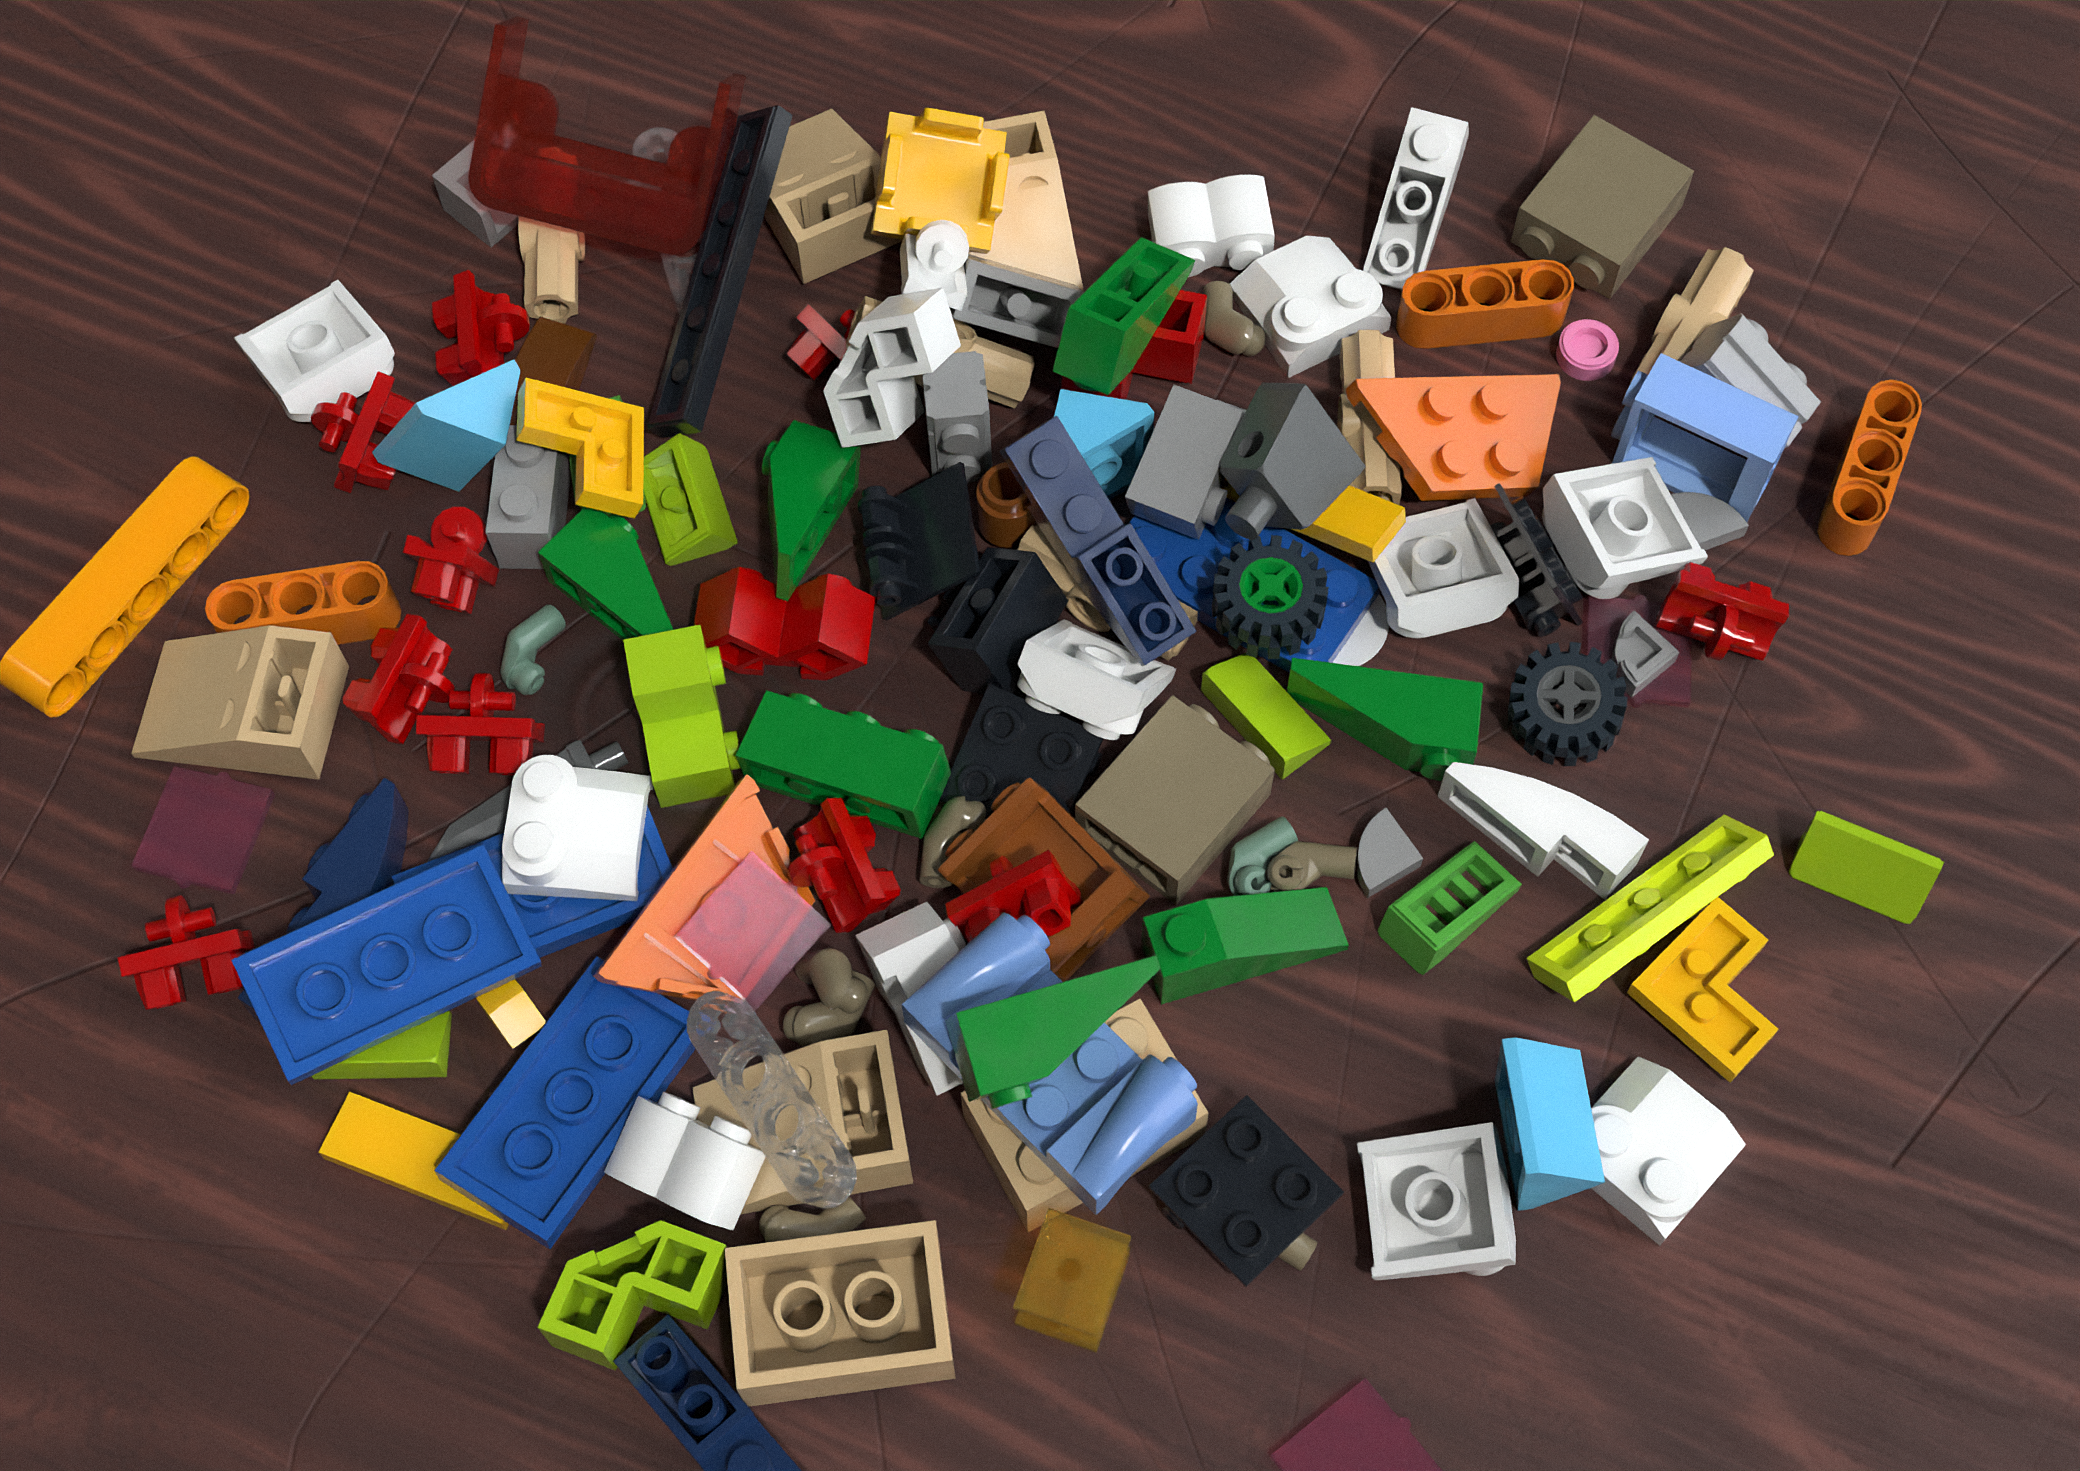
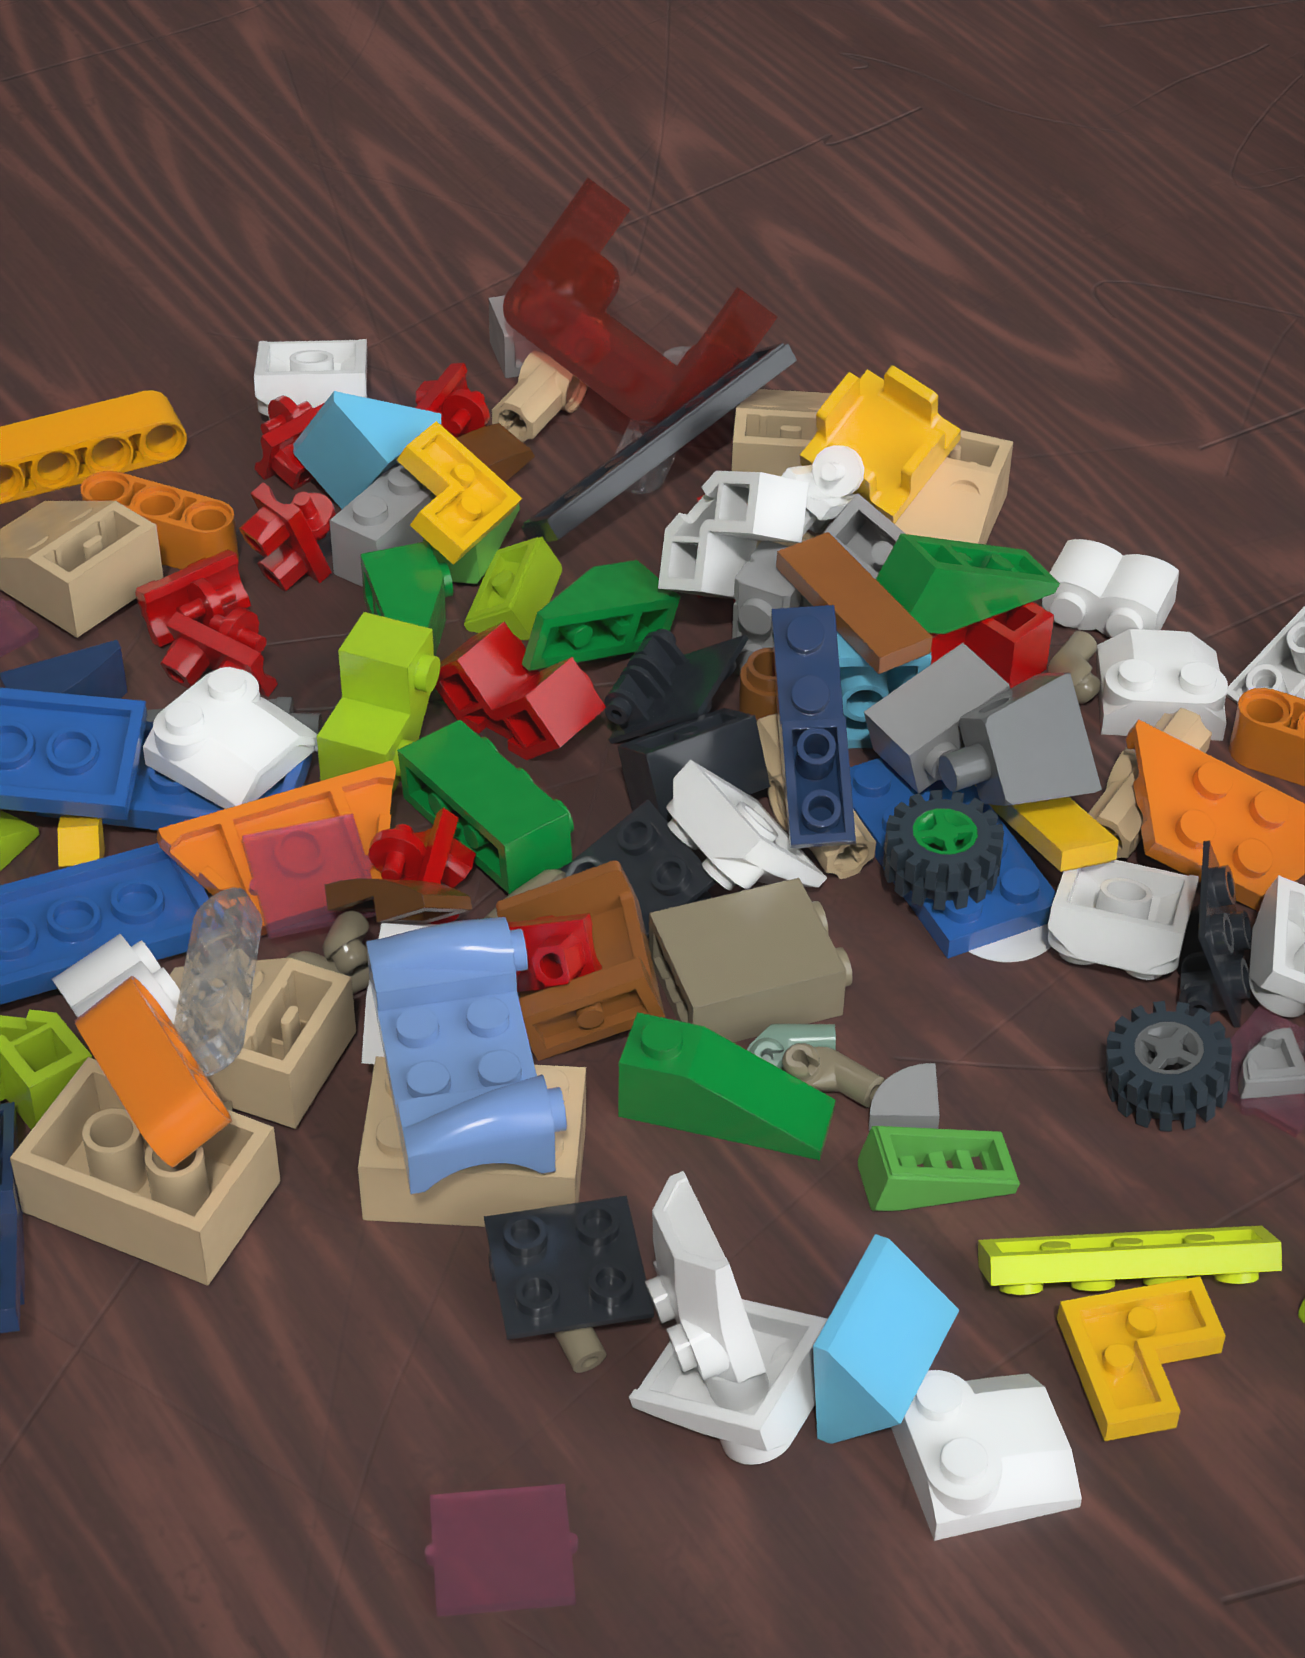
camera: 30 degrees right, 20 degrees down
(521, 647) = (299, 622): sand green arm -> none
(813, 1243) = (153, 1071): none -> orange beam
(870, 918) = (397, 899): none -> reddish brown slope
(1030, 1034) = (458, 1004): green slope -> none
(1051, 387) = (863, 608): none -> dark orange tile
(1072, 1280) = (363, 1257): clear yellow piece -> none
(1264, 713) = (881, 948): lime slope -> none
(1394, 1167) = (699, 1290): none -> white slope
(1403, 716) = (1004, 1002): green slope -> none
(1544, 824) = (1075, 1144): white slope -> none

